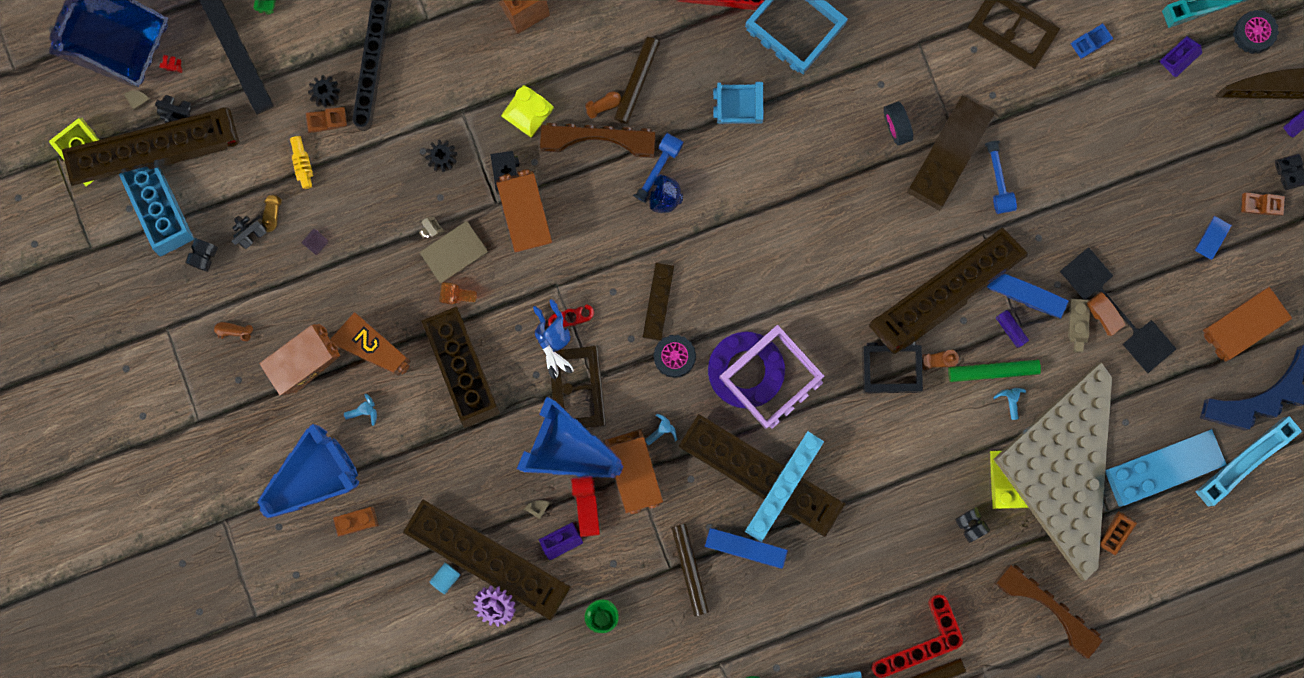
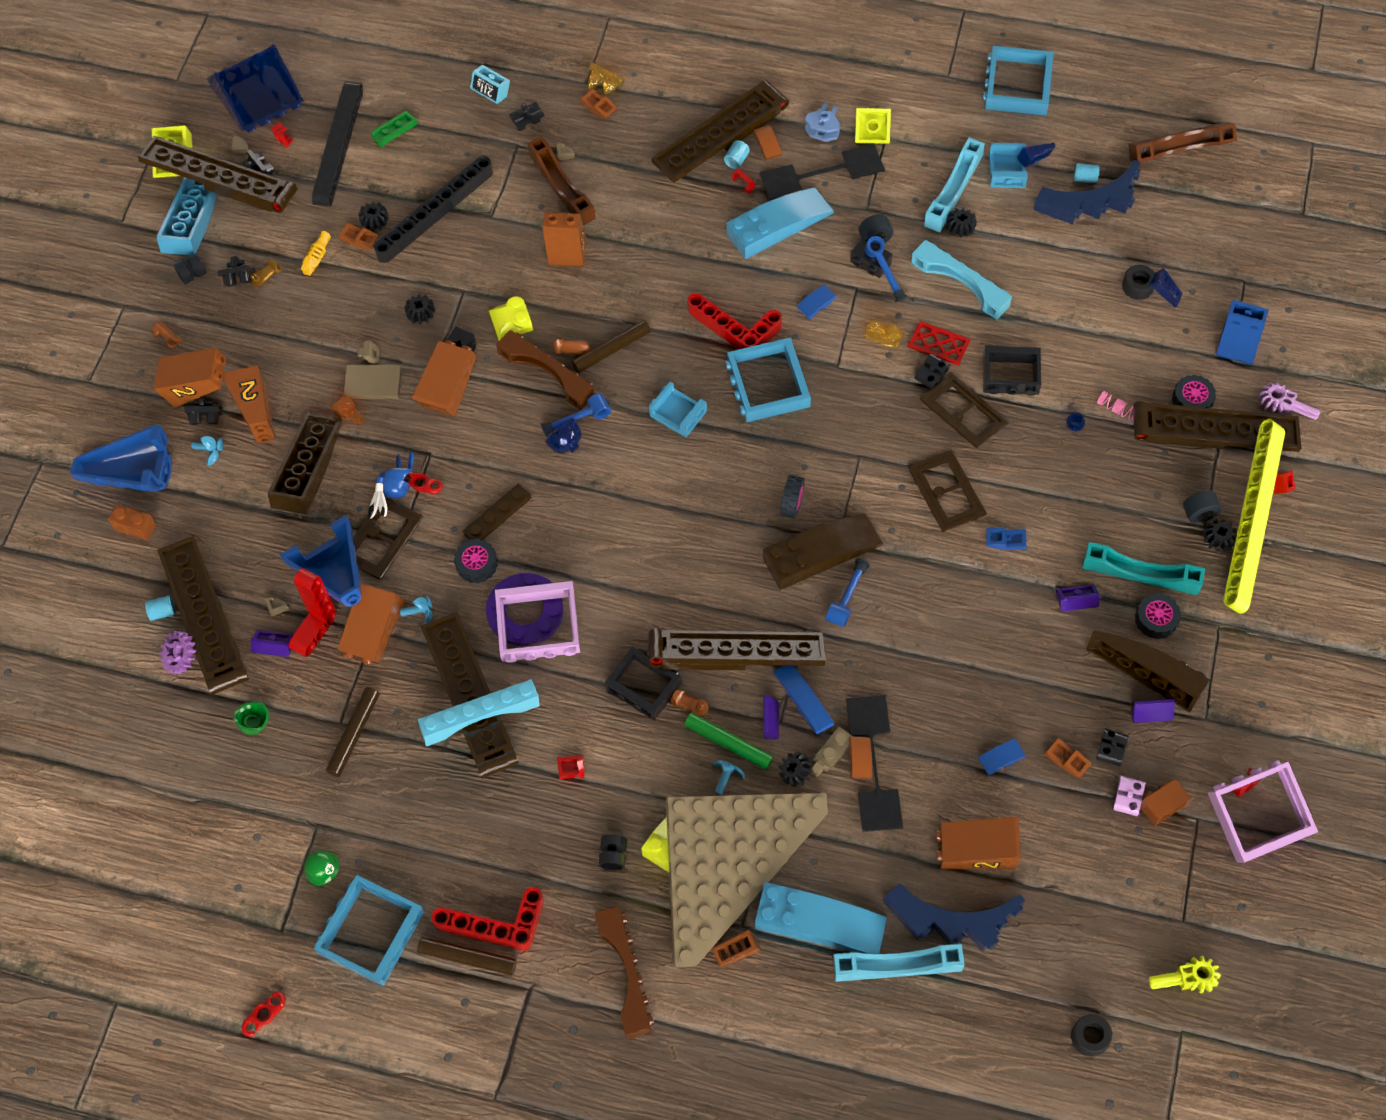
camera: 35 degrees right, 20 degrees down
(315, 242) = (278, 312): clear purple tile -> none
(337, 376) = (194, 413): none -> black hips
(746, 548) = (411, 744): blue slope -> none
(885, 476) = (571, 767): none -> red tile
(1070, 365) = (795, 769): none -> black gear

